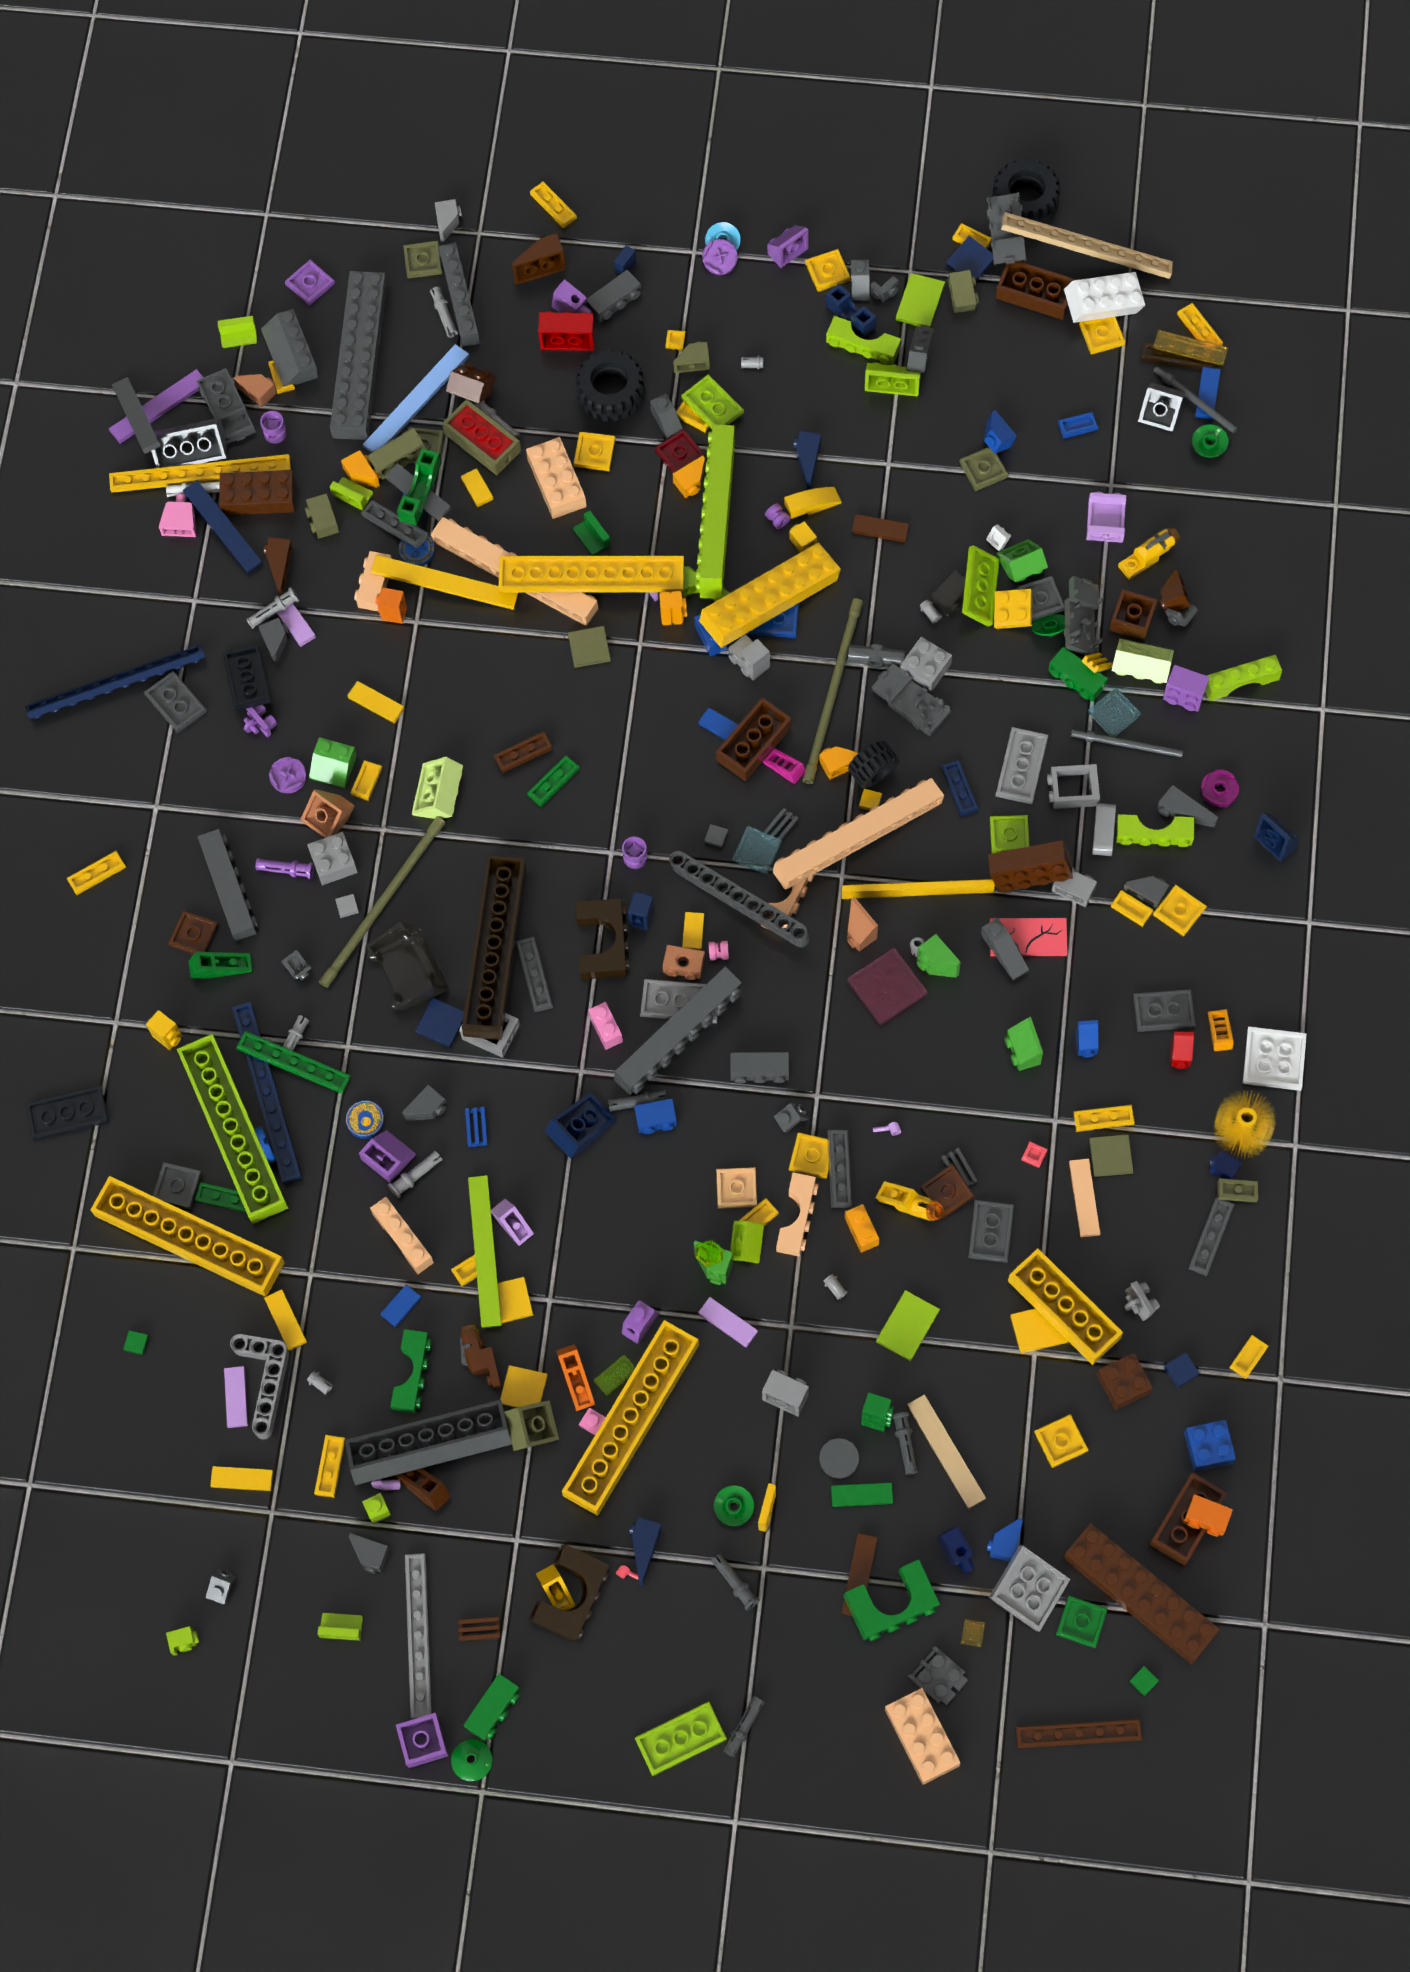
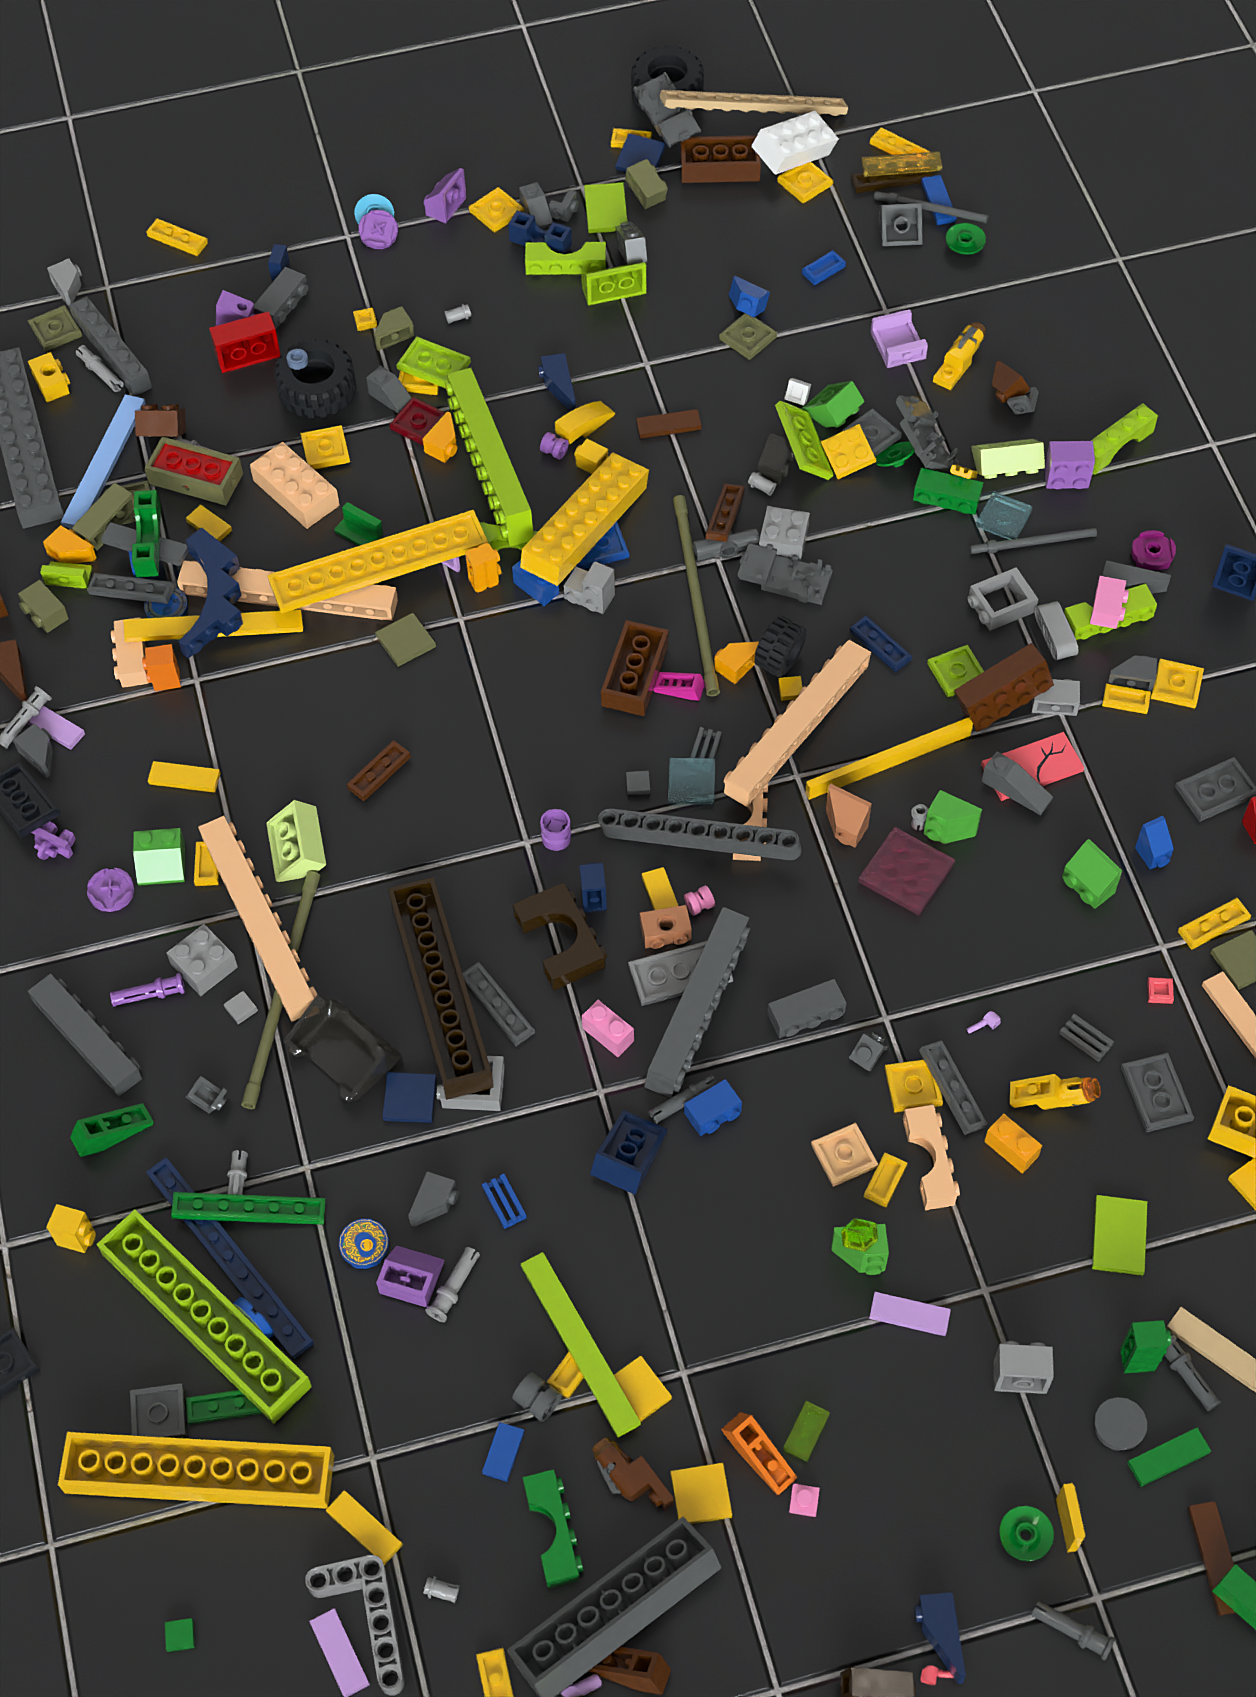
camera: 25 degrees left, 10 degrees down
(193, 933) = (62, 1105): reddish brown tile -> none
(326, 812) = (174, 912): nougat slope -> none
(383, 839) = (257, 916): none -> light nougat brick
(399, 315) = (49, 377): none -> yellow brick
(402, 1235) = (453, 1352): light nougat arch -> none
(438, 1277) = (538, 1397): none -> dark grey wheel
(449, 575) = (223, 591): none -> dark blue arch
(512, 1221) = (597, 1294): lavender slope -> none
(531, 1425) = (736, 1533): olive brick -> none
(539, 260) = (186, 286): reddish brown slope -> none
(553, 781) = (426, 789): green tile -> none
(598, 367) = (297, 359): none -> sand blue tile
(630, 1418) = (851, 1478): yellow brick -> none
(640, 1321) = (806, 1352): medium lavender torso -> none
(717, 723) = (586, 669): blue tile -> none
(746, 1241) = (887, 1207): lime panel -> none
(834, 1285) = (1014, 1222): light grey pin -> none
(886, 628) = (725, 512): none -> reddish brown tile
(948, 1190) = (1087, 1059): reddish brown tile -> none
(1021, 765) = (935, 599): light grey tile -> none
(1133, 615) = (976, 416): reddish brown brick -> none
(1151, 824) = (1108, 602): none -> bright pink brick

